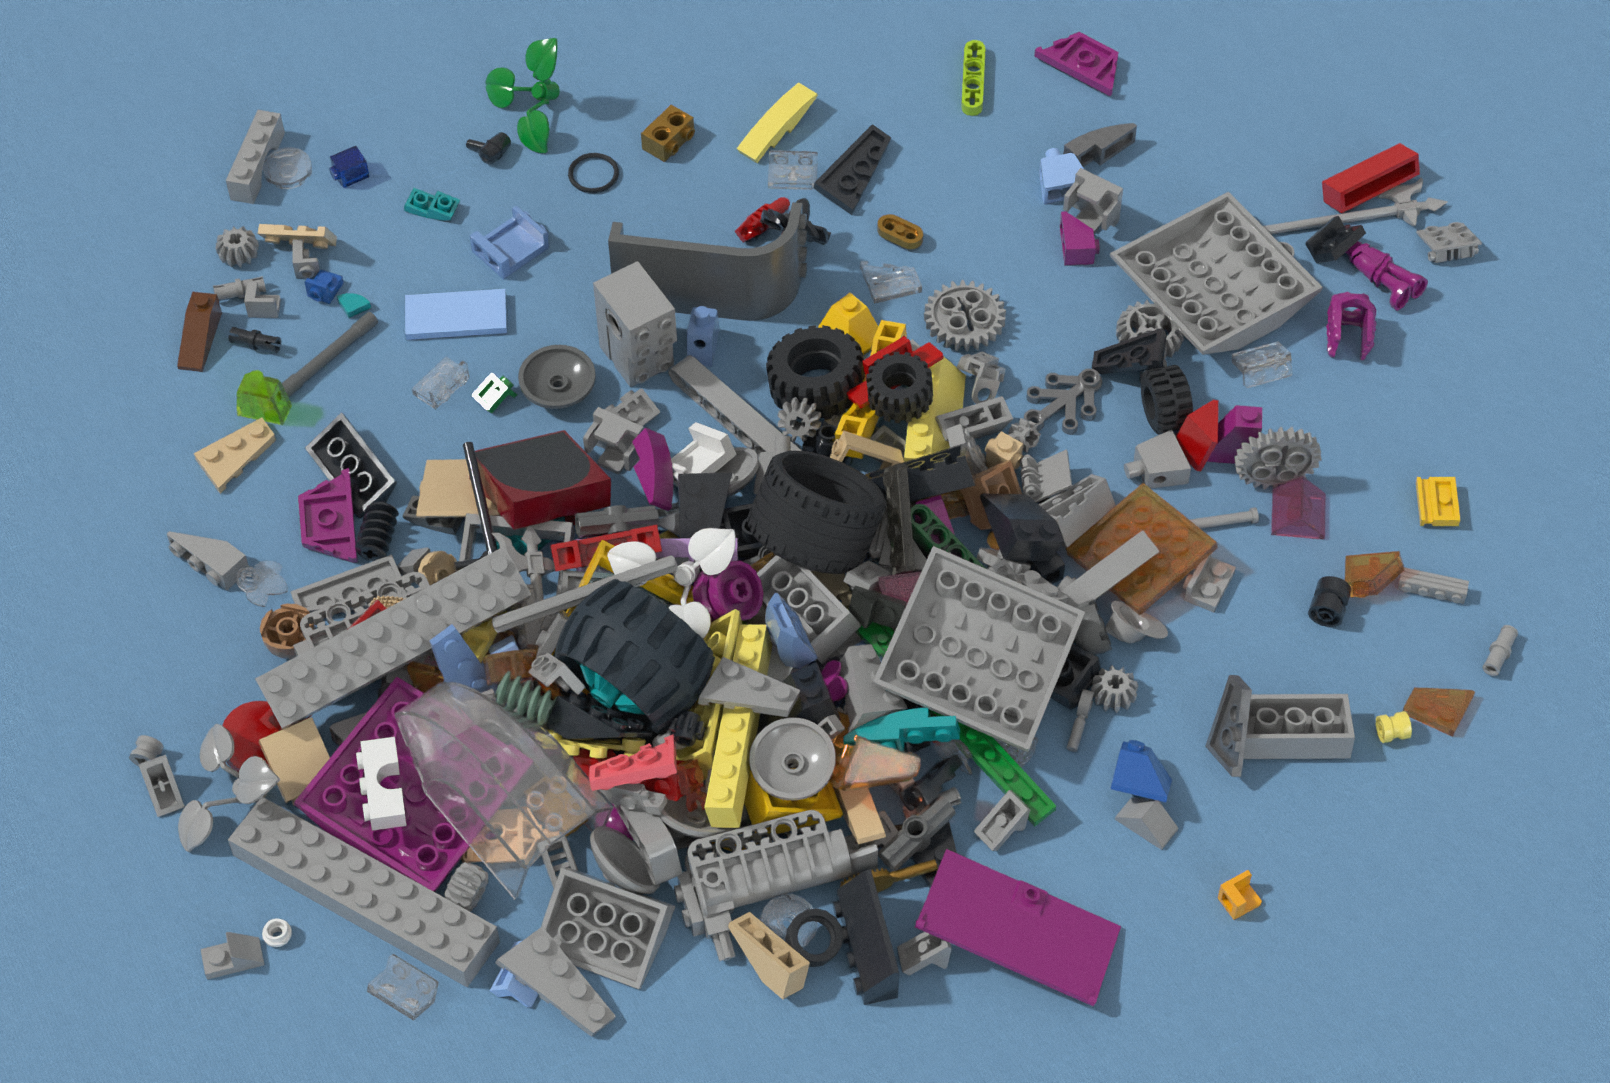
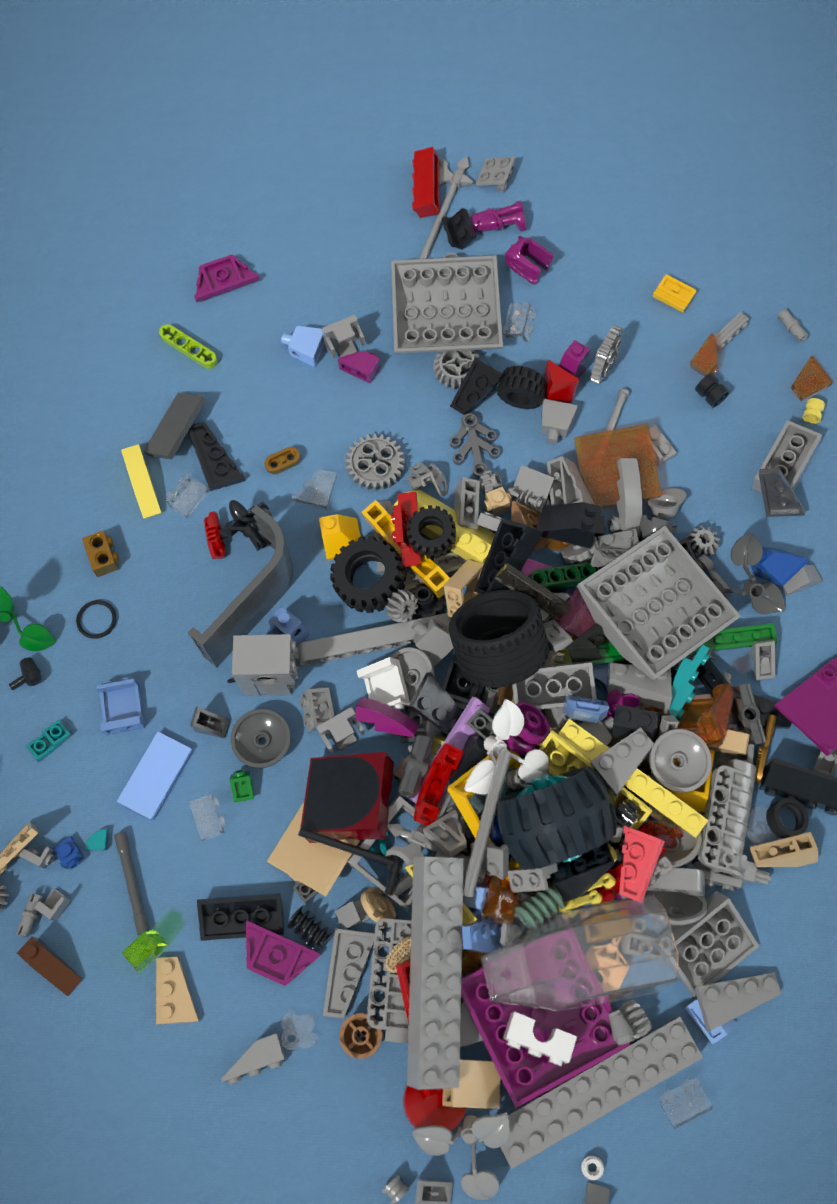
camera: 55 degrees left, 15 degrees up
(254, 339) = (83, 927): black pin -> none
(442, 866) = (620, 1028): none -> light grey cone
(543, 323) = (209, 723): none -> dark grey slope
(553, 580) = (447, 834): none -> light grey wing
(865, 114) = (174, 425): none -> dark grey tile
(1090, 791) = (766, 596): none -> dark grey plant
(1102, 143) = (296, 307): flat silver slope -> none
(1298, 510) = (634, 369): clear pink slope -> none

